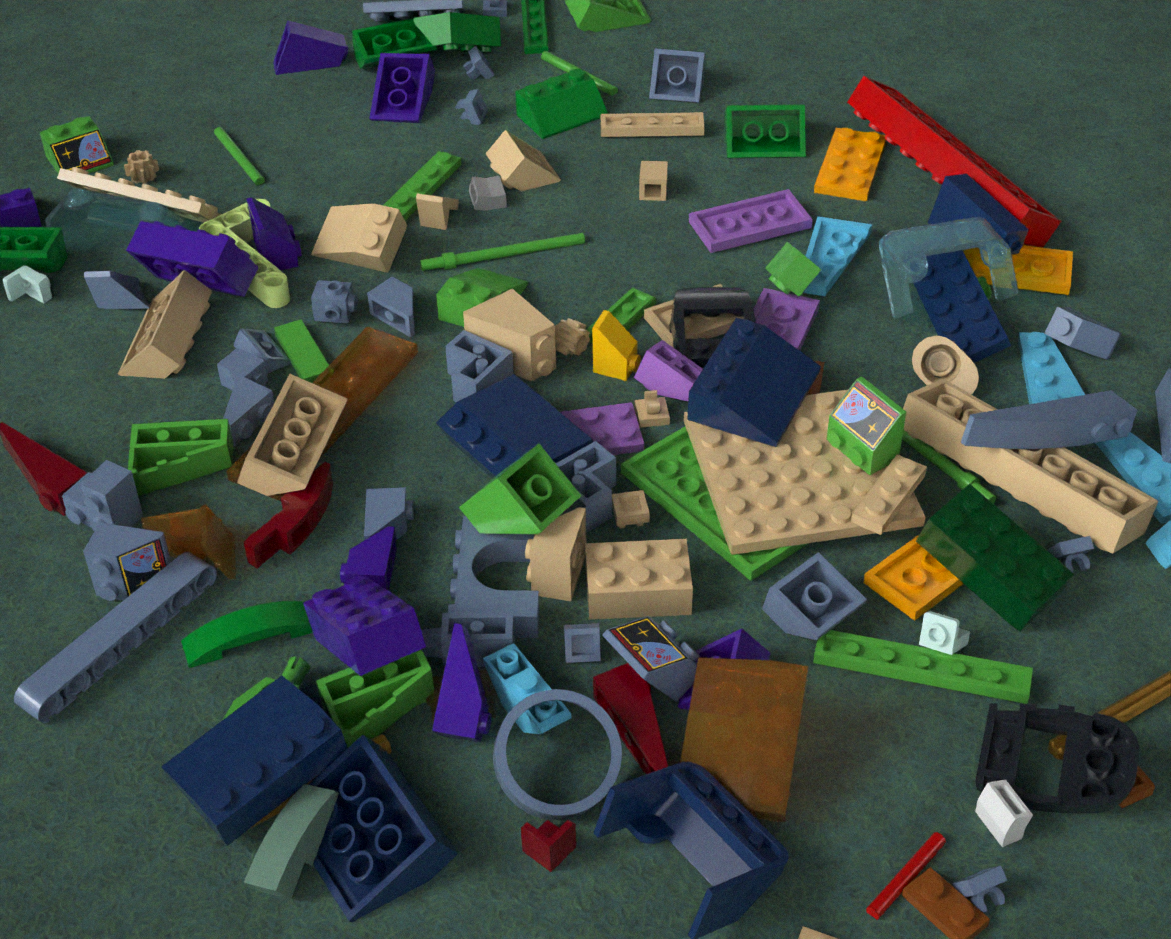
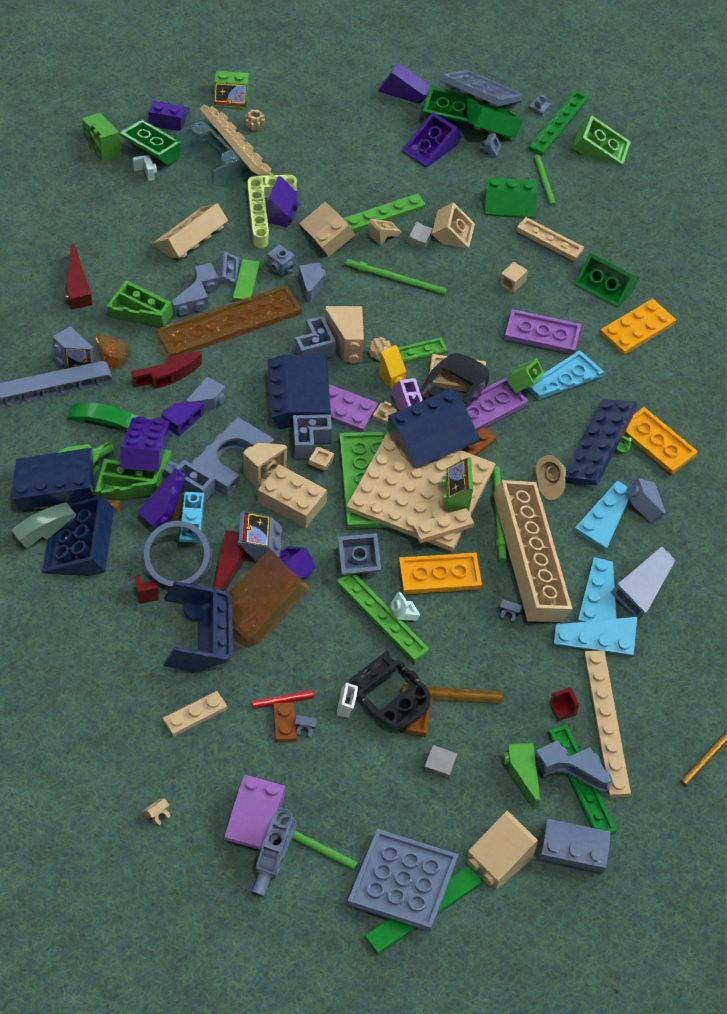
camera: 30 degrees right, 10 degrees up
(104, 497) = (89, 314): sand blue brick -> none
(115, 290) = (184, 194): sand blue slope -> none
(207, 257) = (228, 197): dark purple brick -> none
(217, 542) = (121, 364): clear orange piece -> none
(239, 156) = (312, 142): bright green bar -> none
(291, 438) = (192, 329): tan slope -> none
(470, 290) = (360, 293): bright green slope -> none
(474, 107) = (461, 174): sand blue tile -> none
(522, 497) = (262, 424): bright green slope -> none
(582, 643) = (237, 507): sand blue tile -> none
(677, 75) = (594, 214): sand blue slope -> none
(905, 253) = (611, 404): clear light blue windscreen -> none
(945, 154) = (685, 359): red brick -> none
(964, 198) = (655, 401): dark blue slope -> none
(994, 557) = (462, 586): dark green brick -> none
(1052, 423) = (559, 539): sand blue slope -> none

